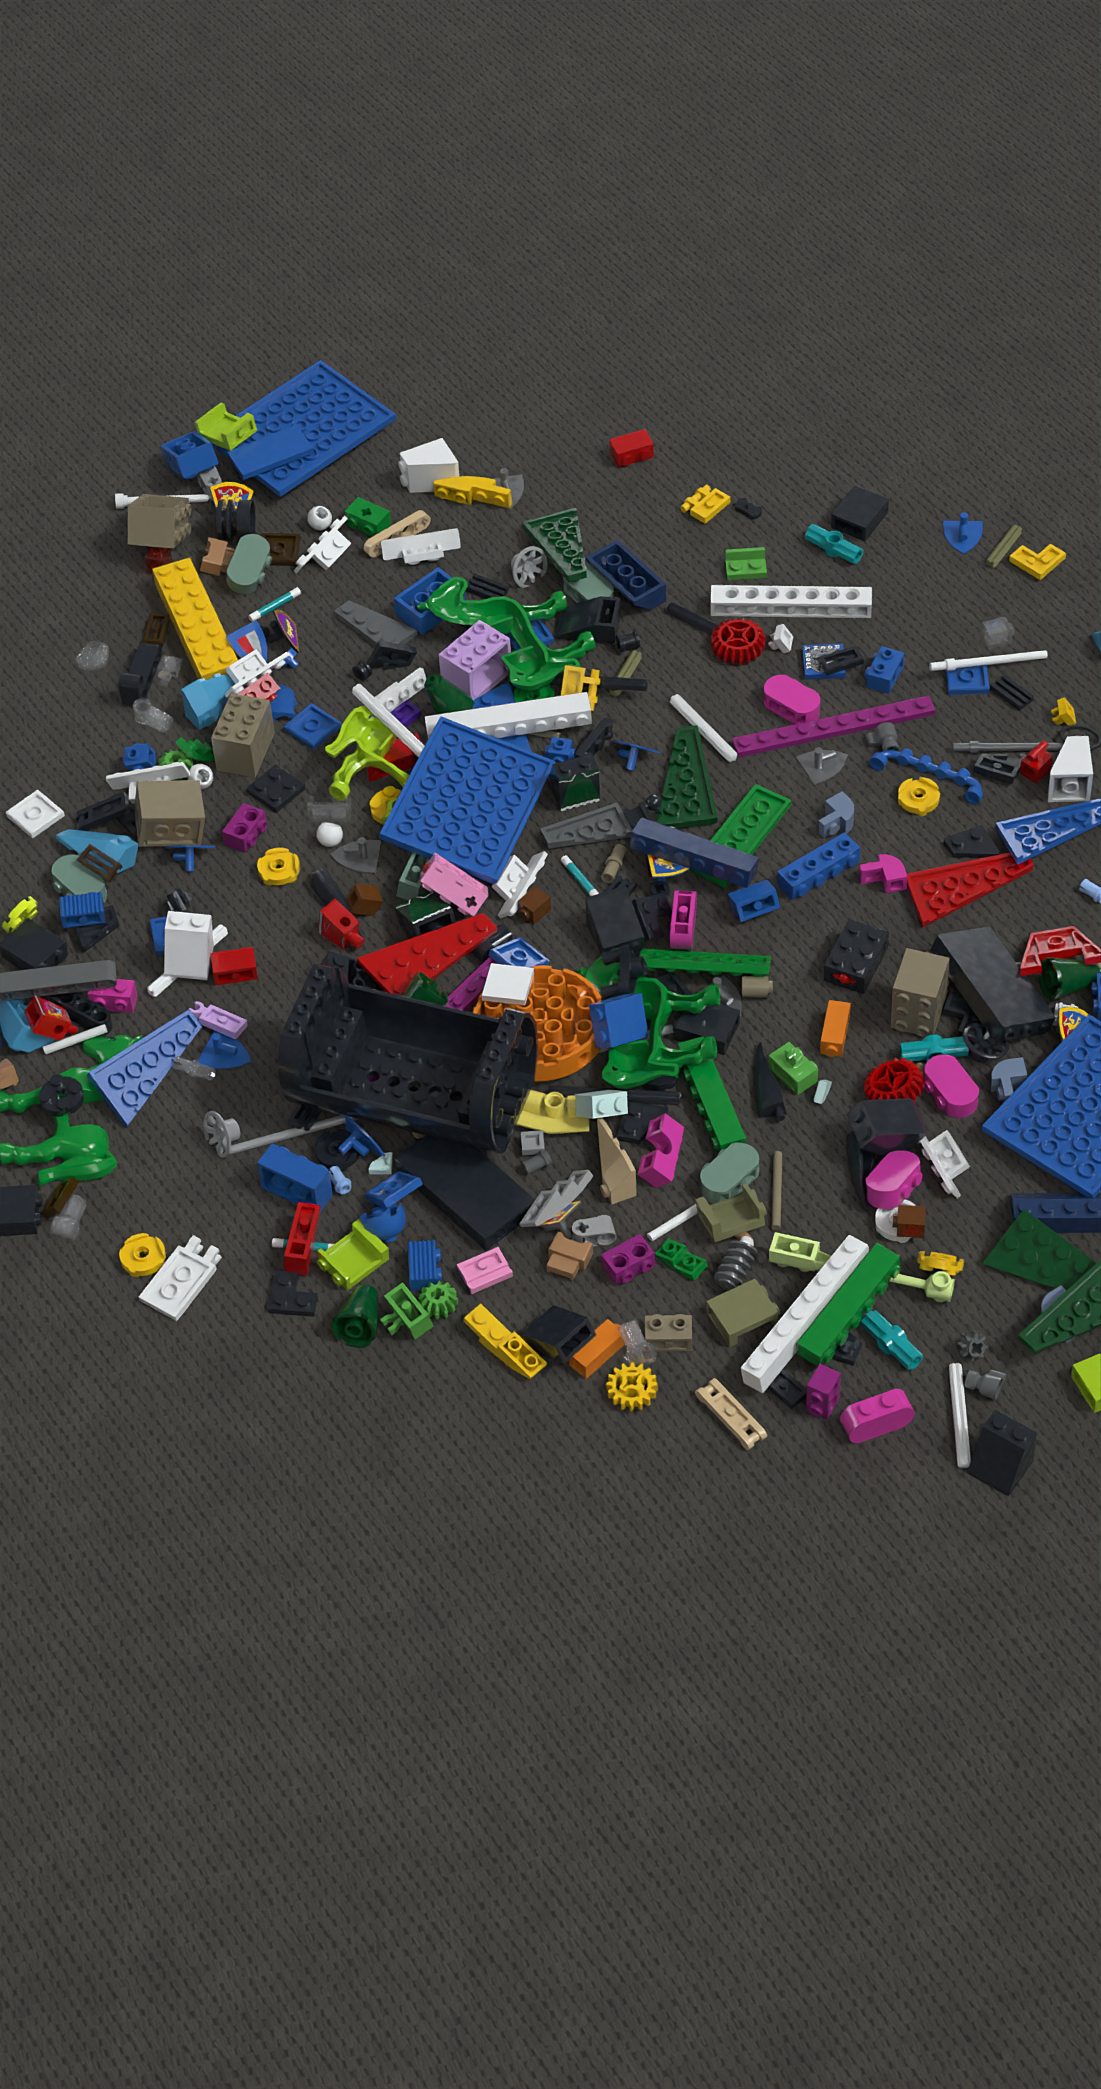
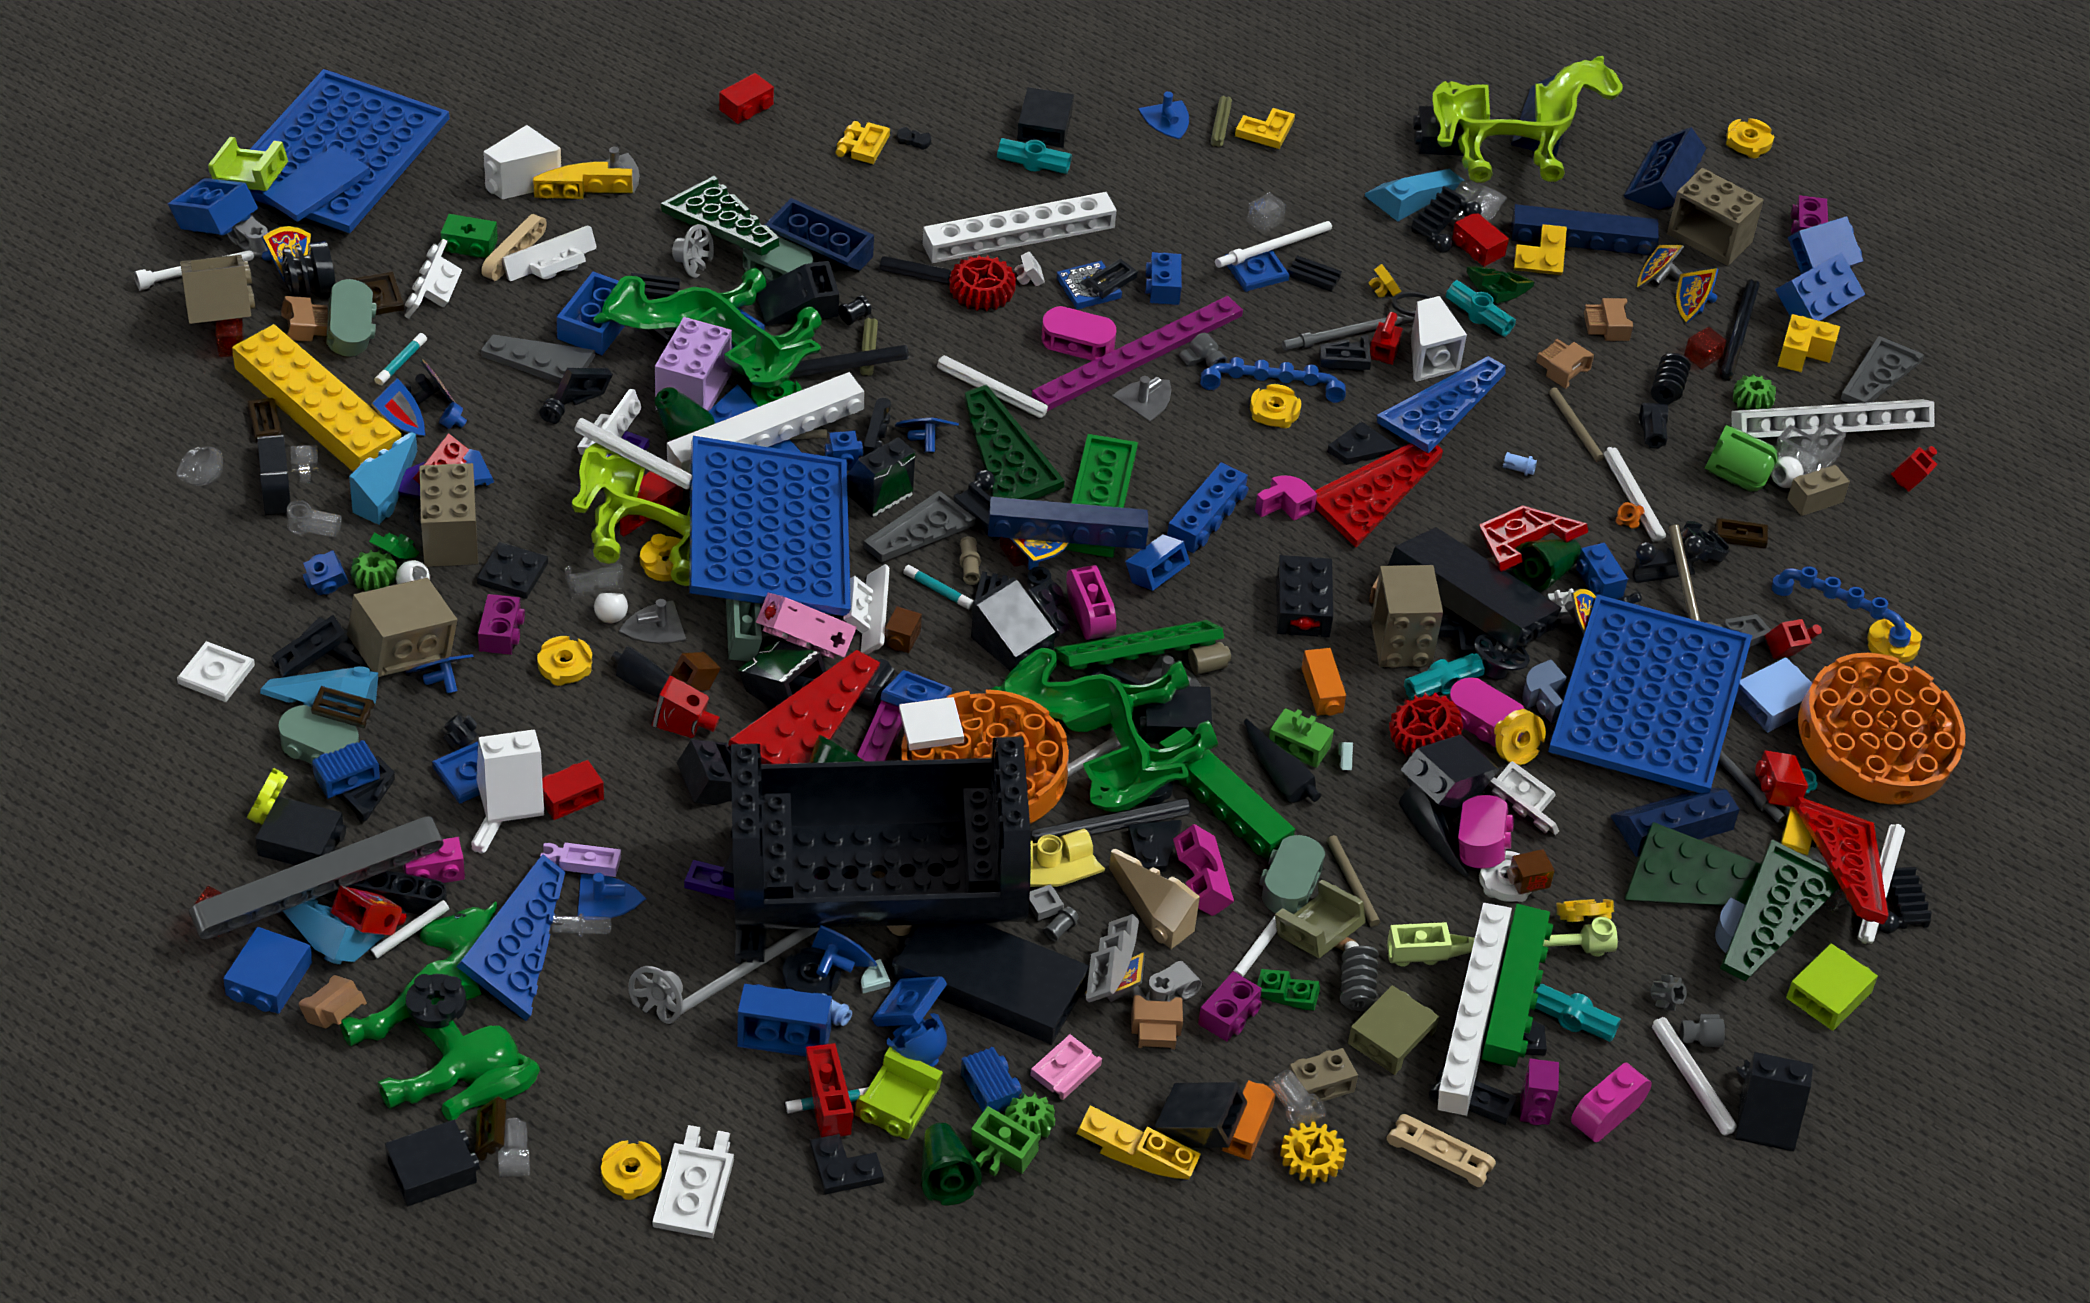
camera: 30 degrees left, 5 degrees down
(156, 773) = (338, 598): white bracket -> none
(250, 668) = (419, 437): white bracket -> none
(312, 726) = (521, 488): blue tile -> none
(319, 518) = (410, 248): white piece -> none
(574, 679) = (822, 363): yellow plate -> none
(601, 1104) = (1109, 834): light aqua brick -> none
(618, 1020) = (1086, 731): blue brick -> none
(630, 969) = (1070, 670): black connector -> none
(745, 563) = (944, 197): bright green bracket -> none
(839, 815) = (1200, 445): sand blue brick -> none
(954, 1104) = (1509, 730): none -> yellow plate

